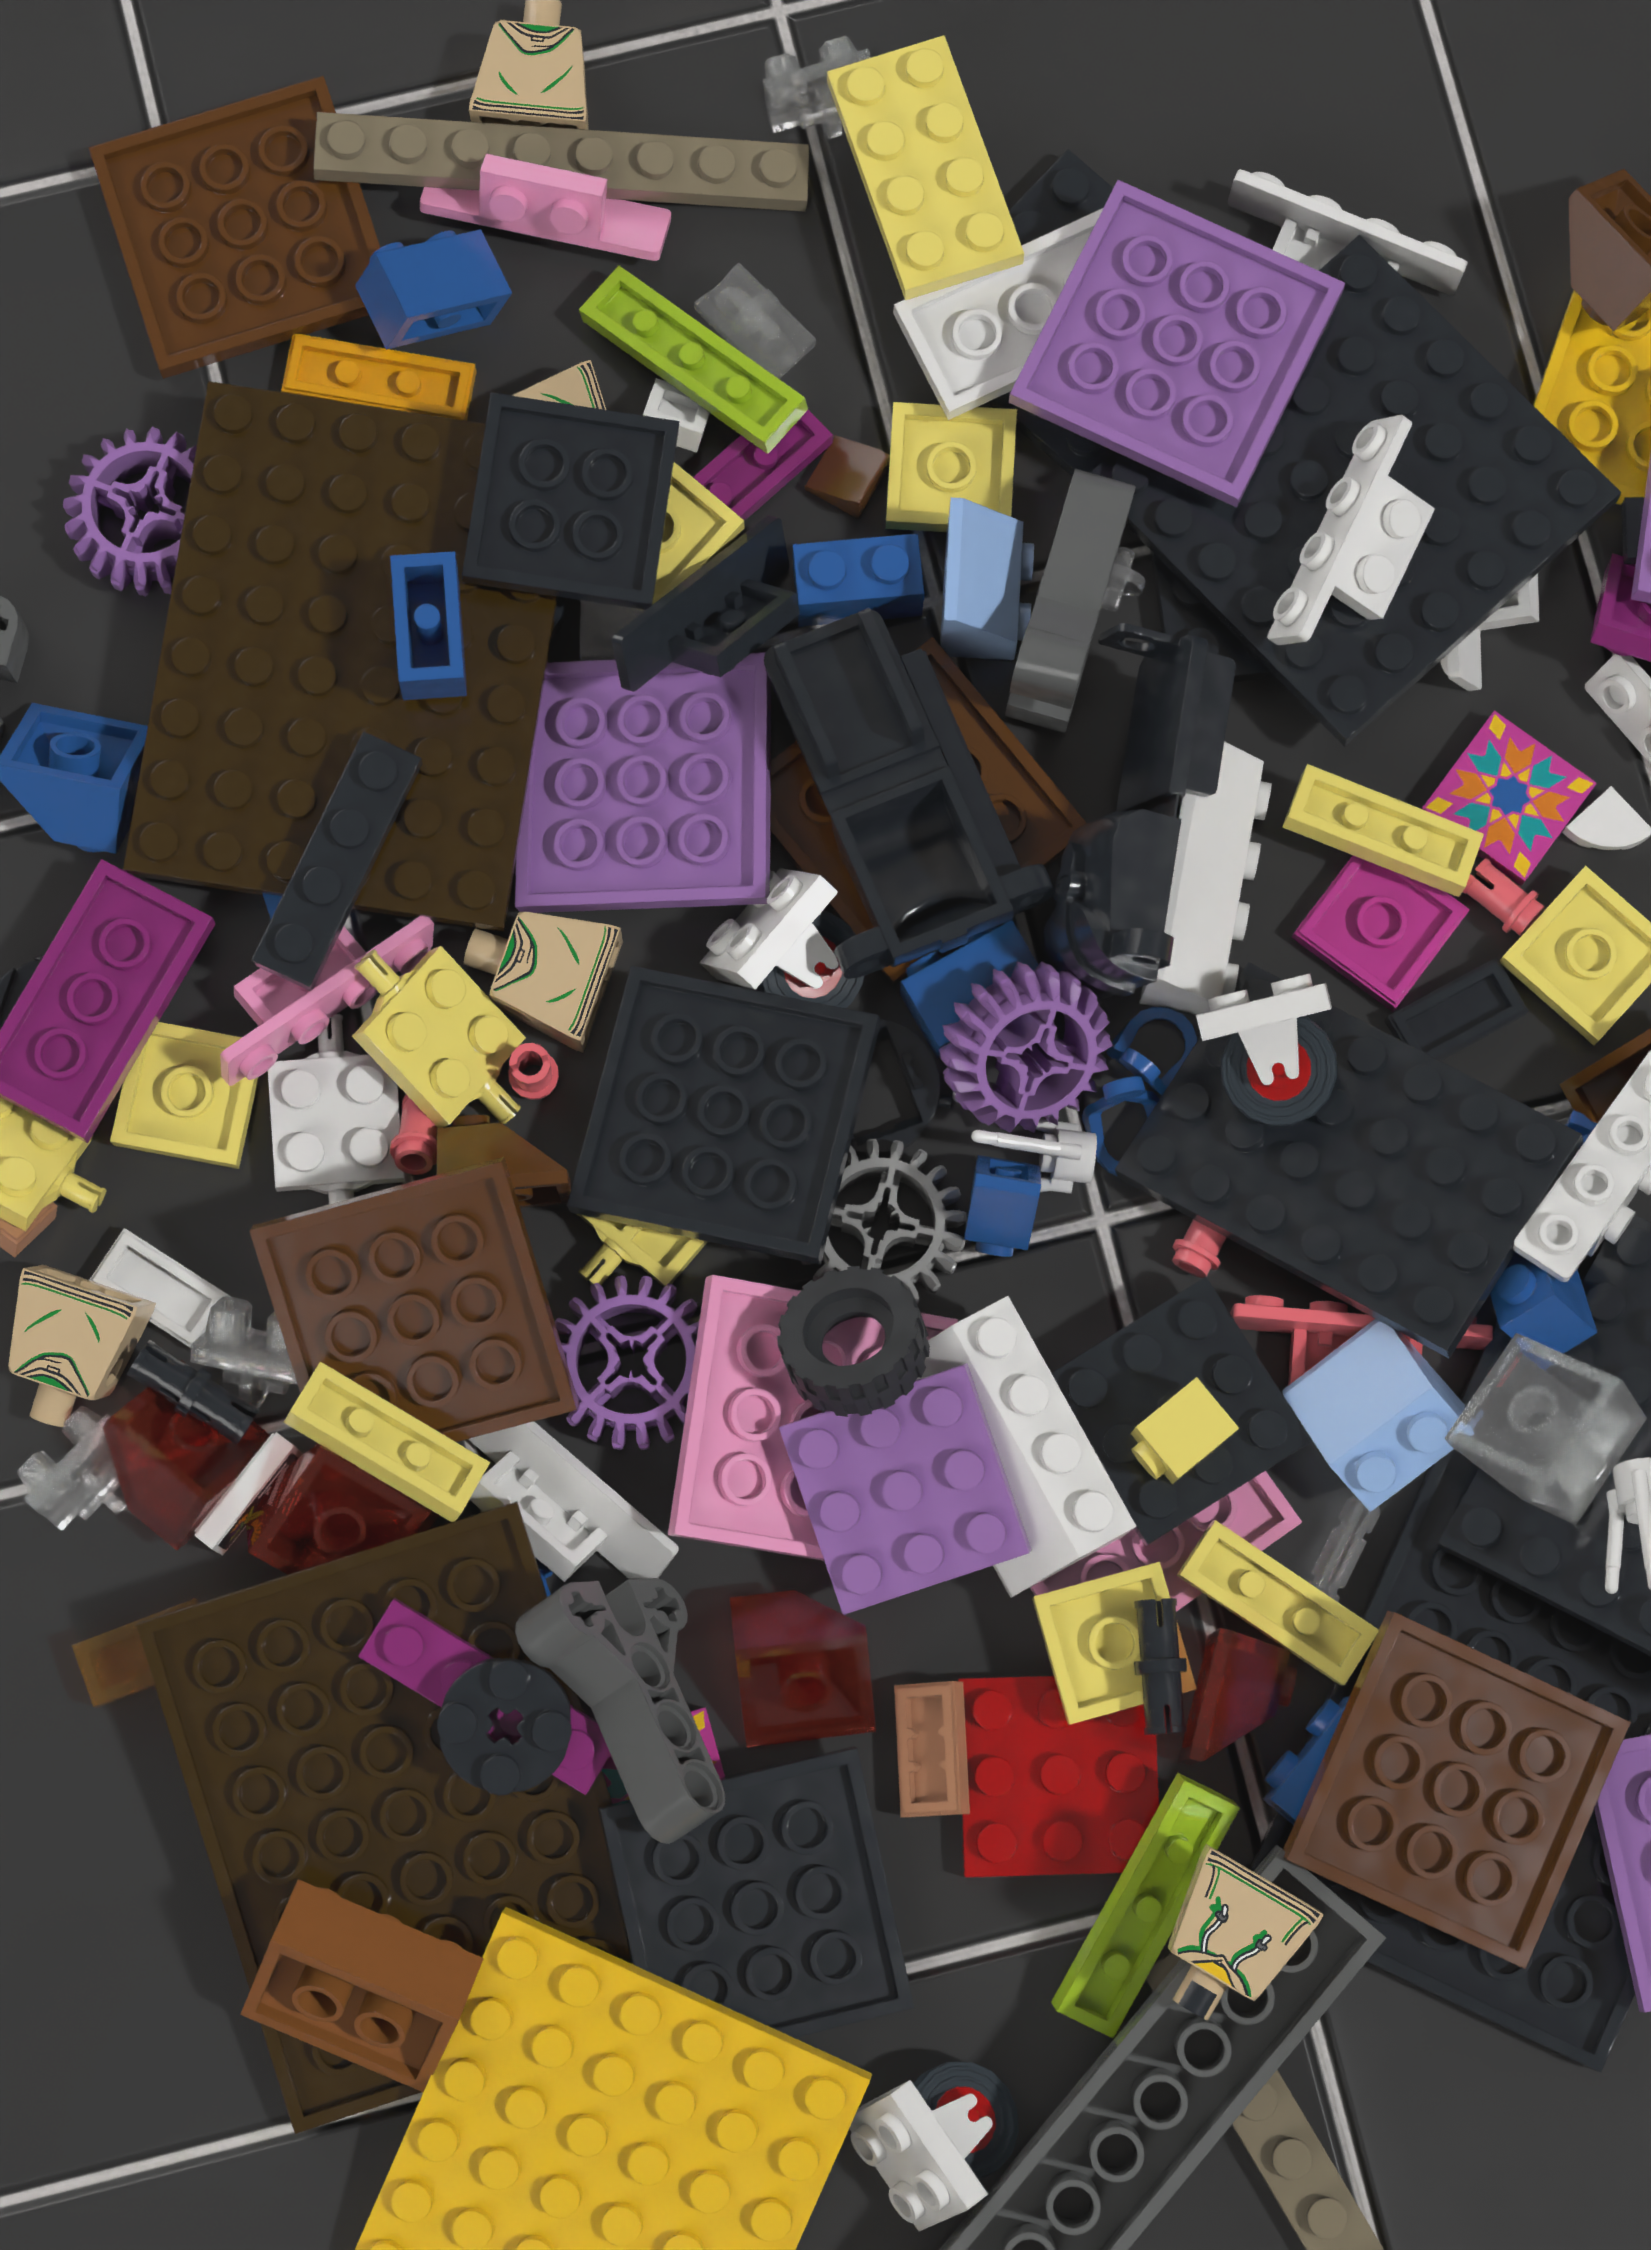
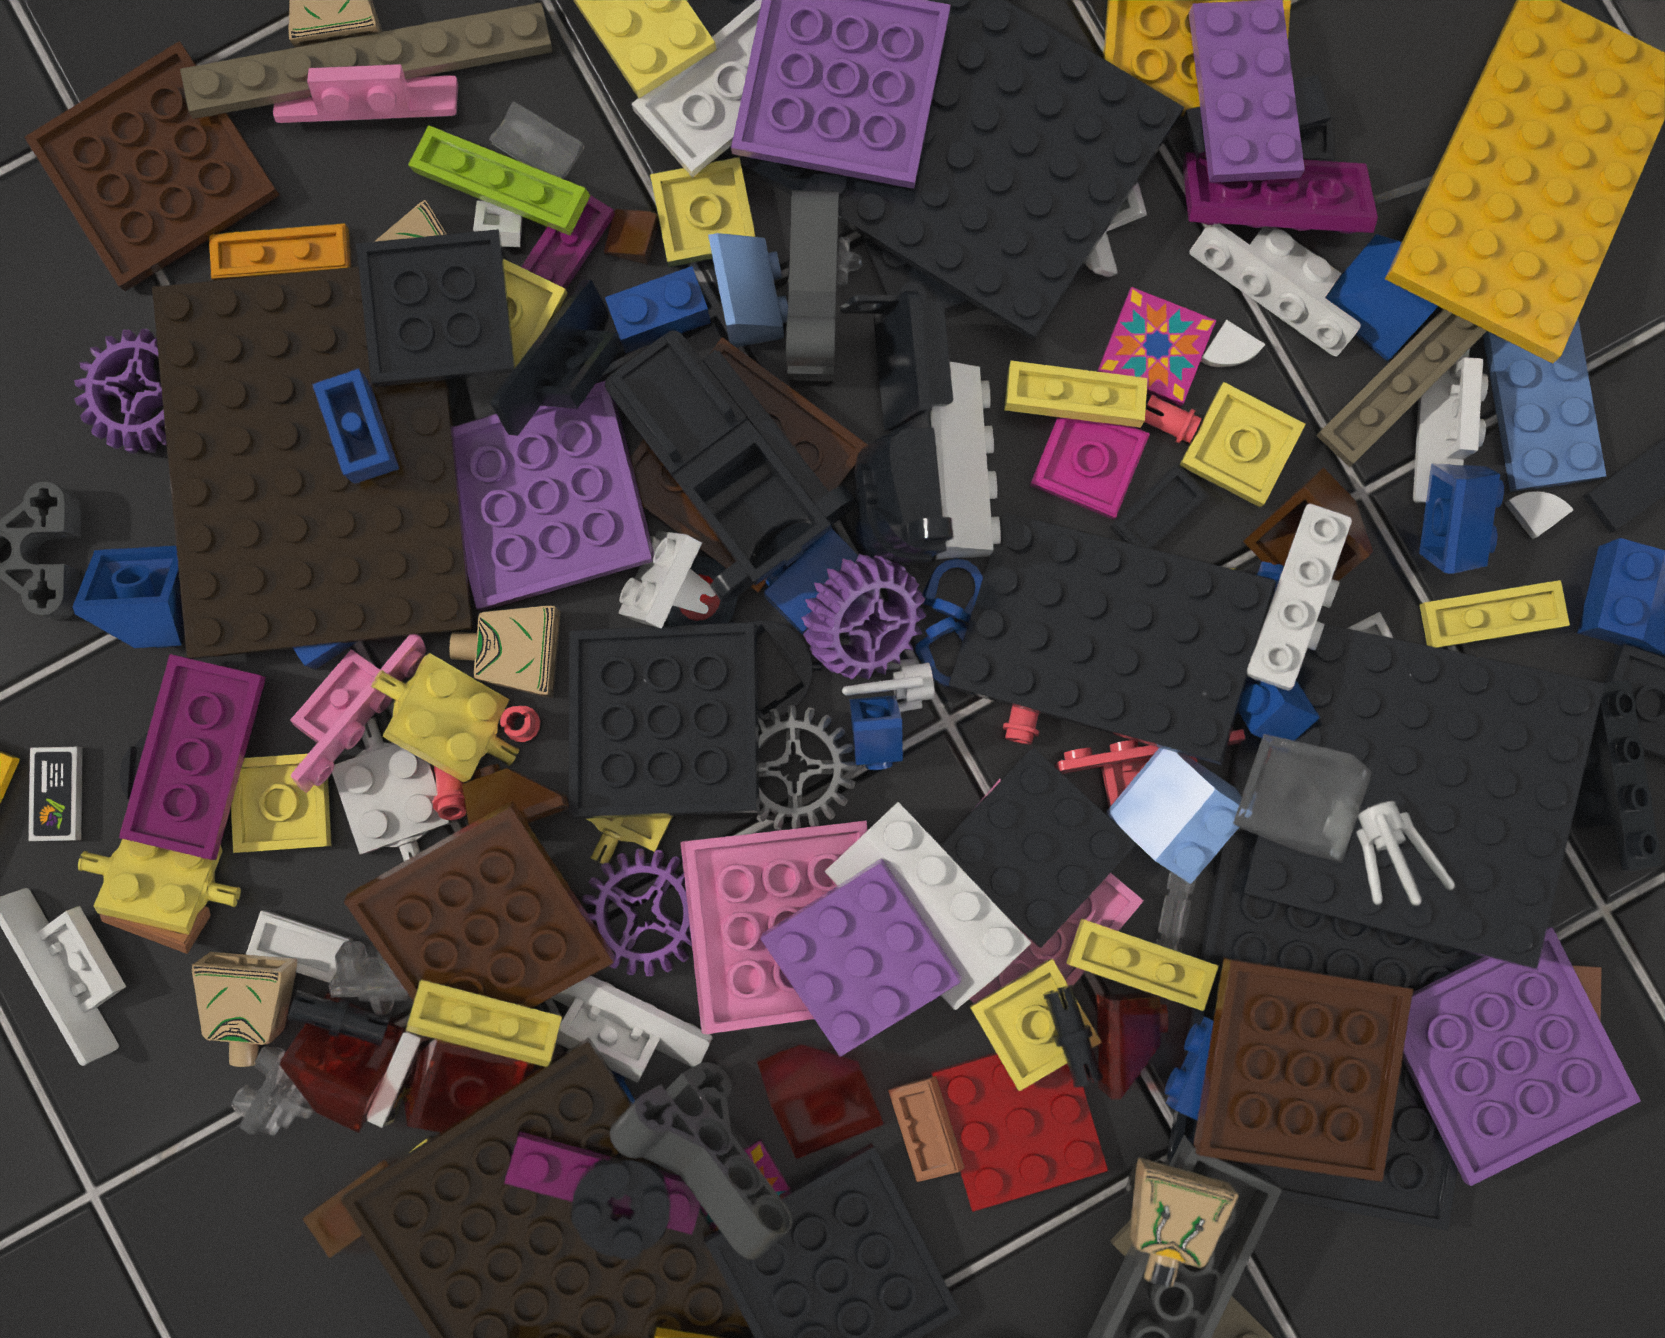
camera: 15 degrees left, 5 degrees up
(337, 861) = (338, 613): black plate -> none
(432, 288) = (298, 176): blue brick -> none
(843, 1297) = (777, 835): black tyre -> none
(1143, 1906) = (1103, 1200): lime plate -> none
(1181, 1432) = (1046, 867): light yellow brick -> none
(1277, 1059) = (1043, 580): plate -> none
(1361, 540) = (1009, 189): white bracket -> none

